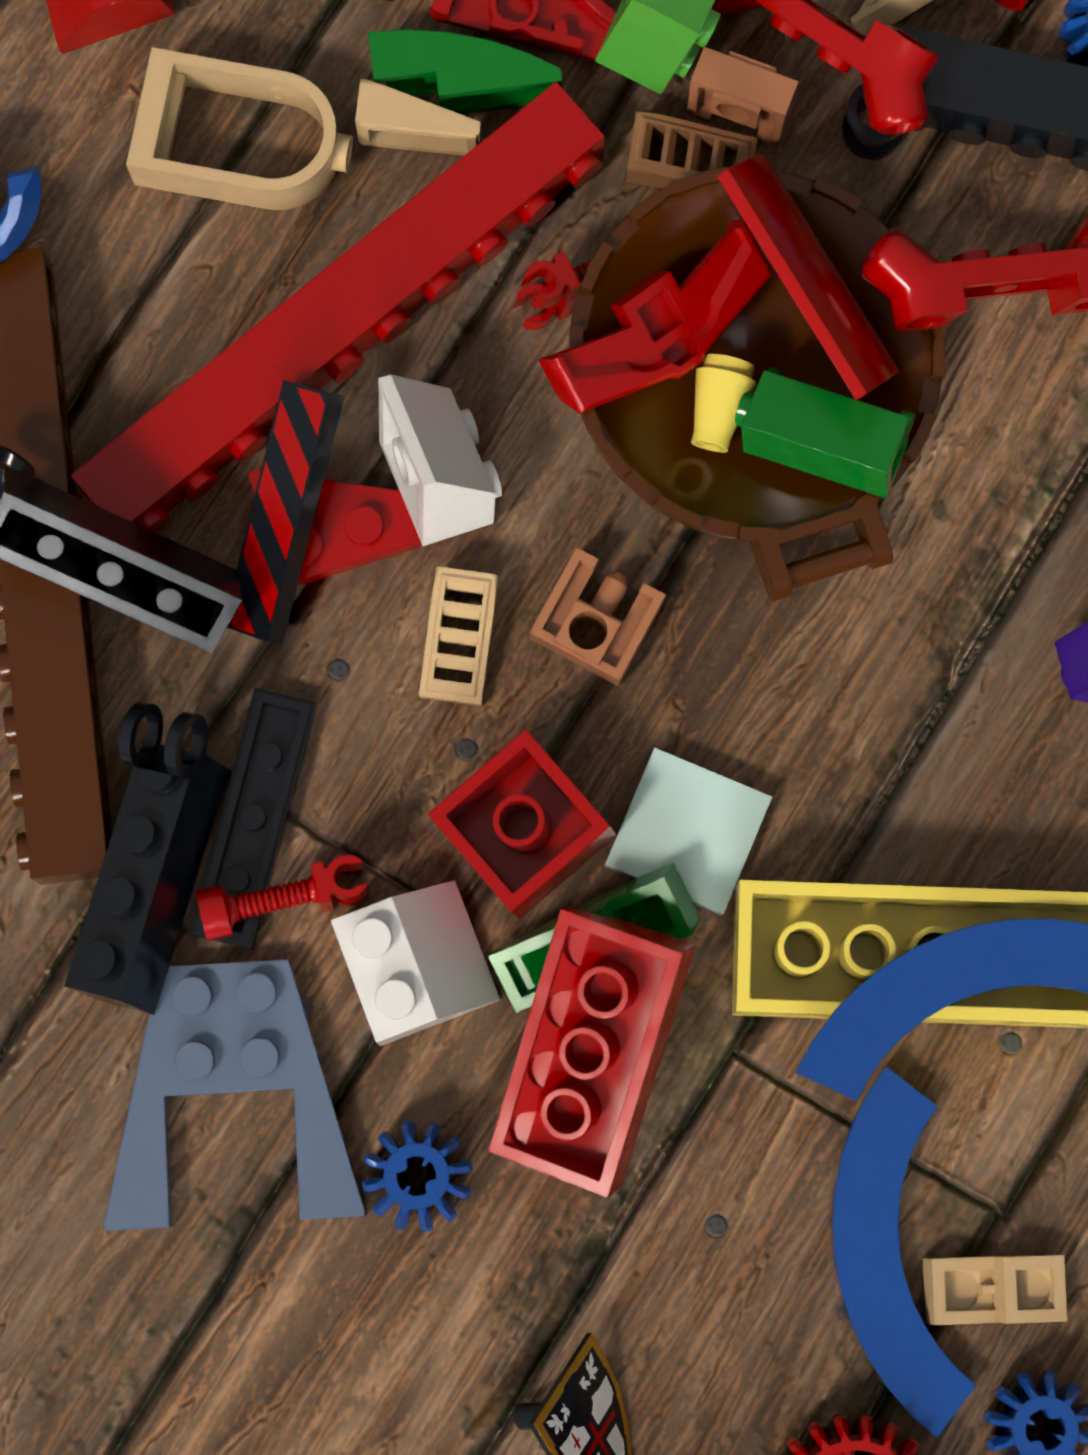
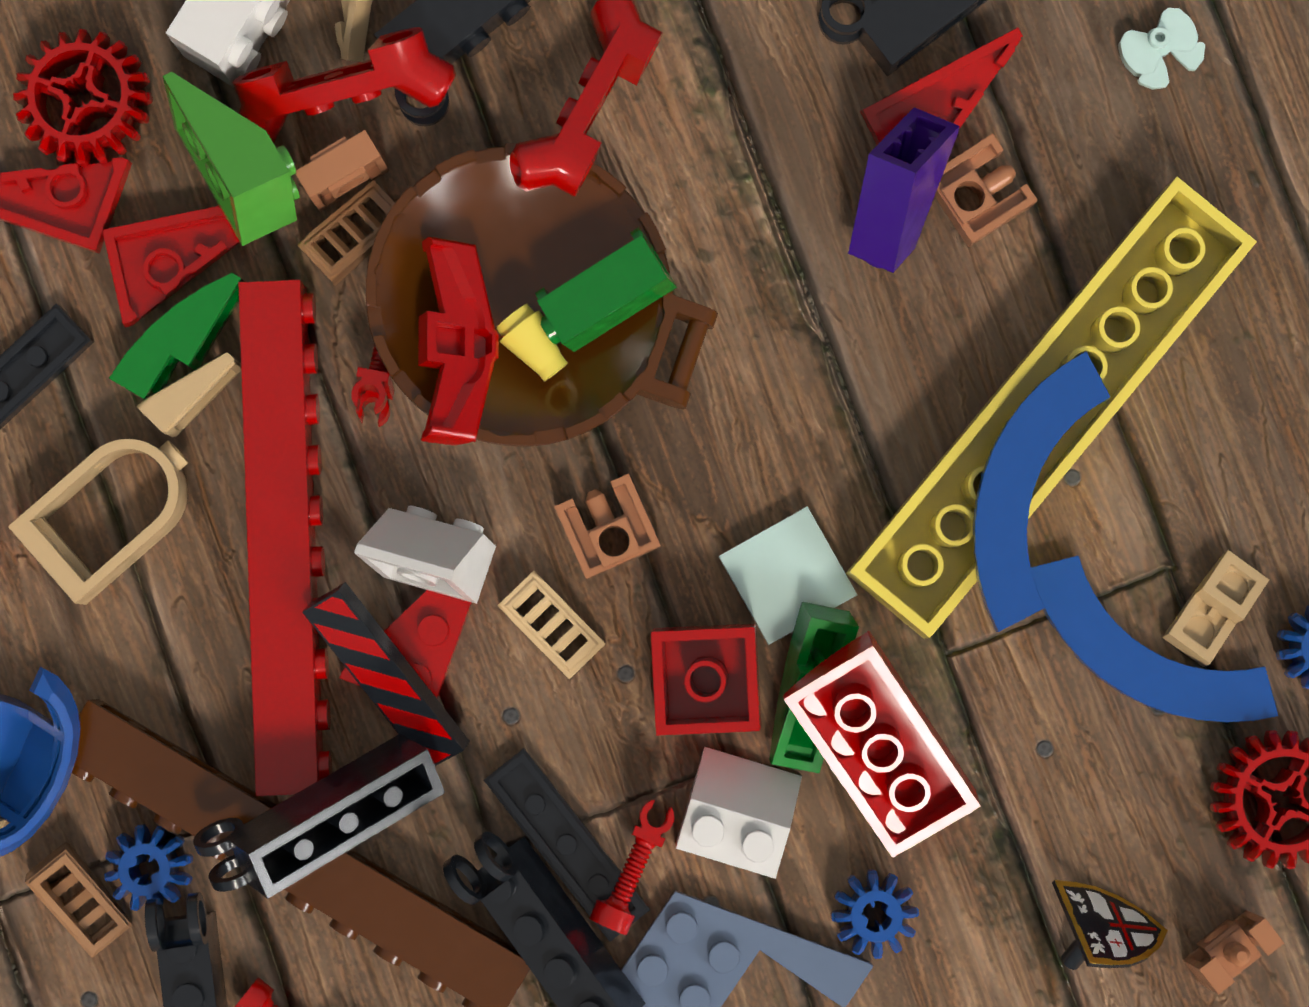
camera: 55 degrees left, 5 degrees up
(808, 274) = (501, 226): red slope -> none

